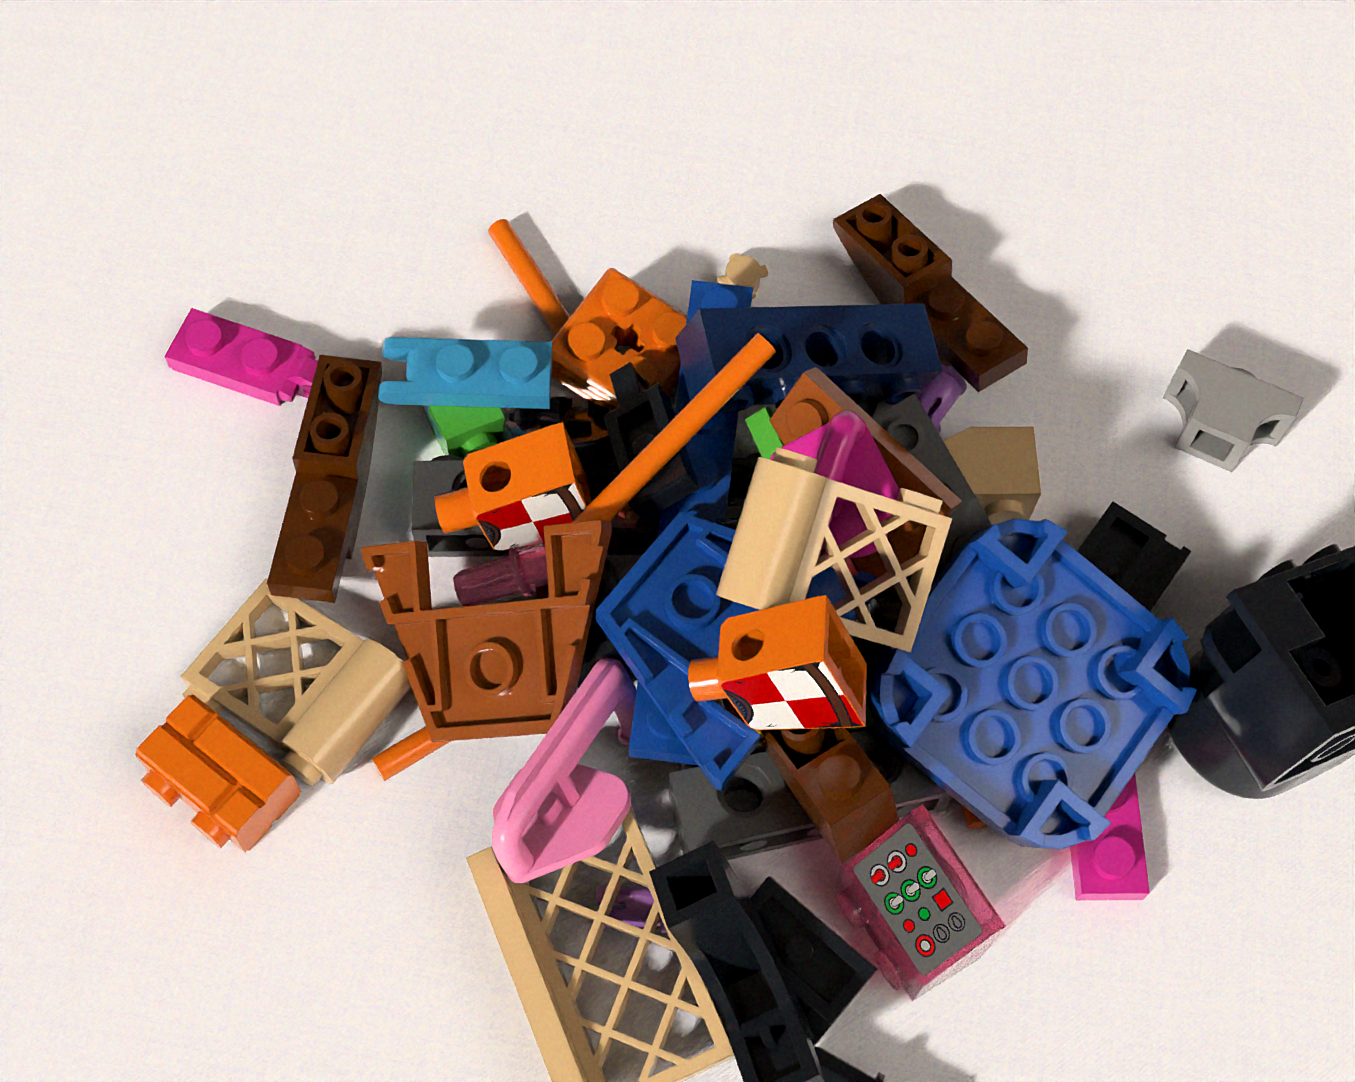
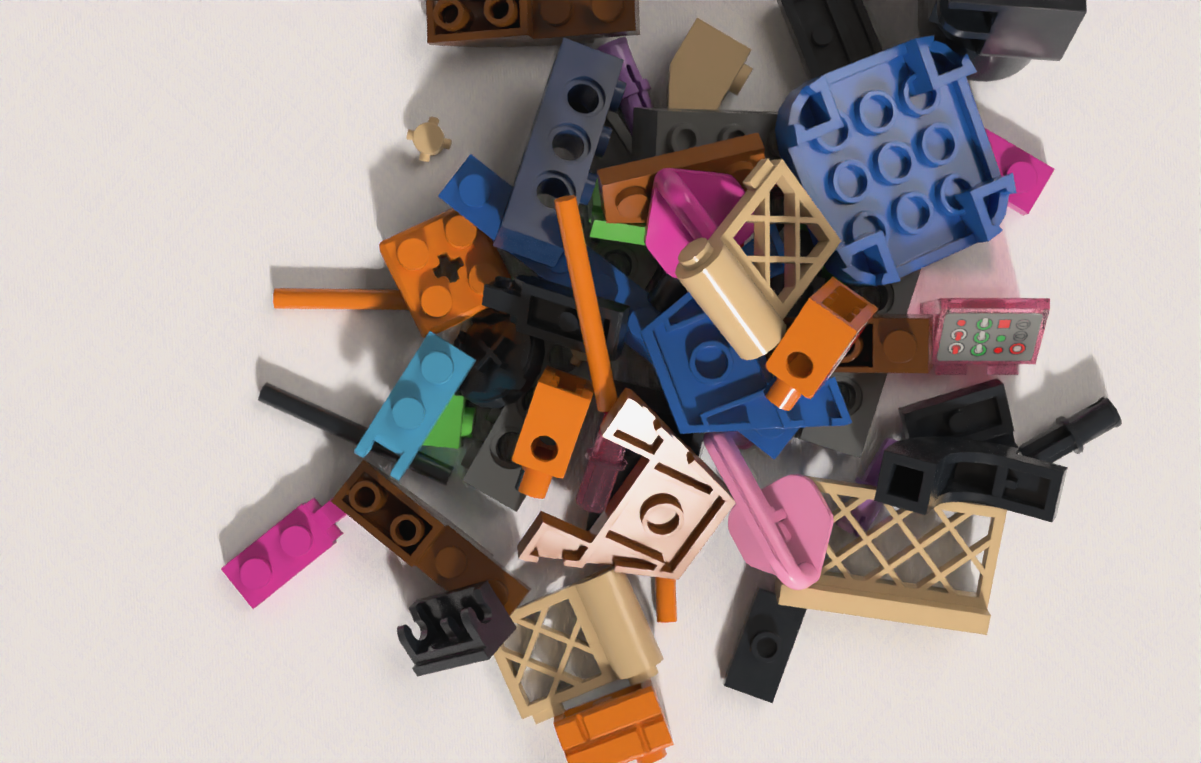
camera: 50 degrees left, 25 degrees up
(255, 539) = (456, 628): none -> black hinge
(402, 325) = (347, 430): none -> black bar
(408, 892) = (763, 646): none -> black plate

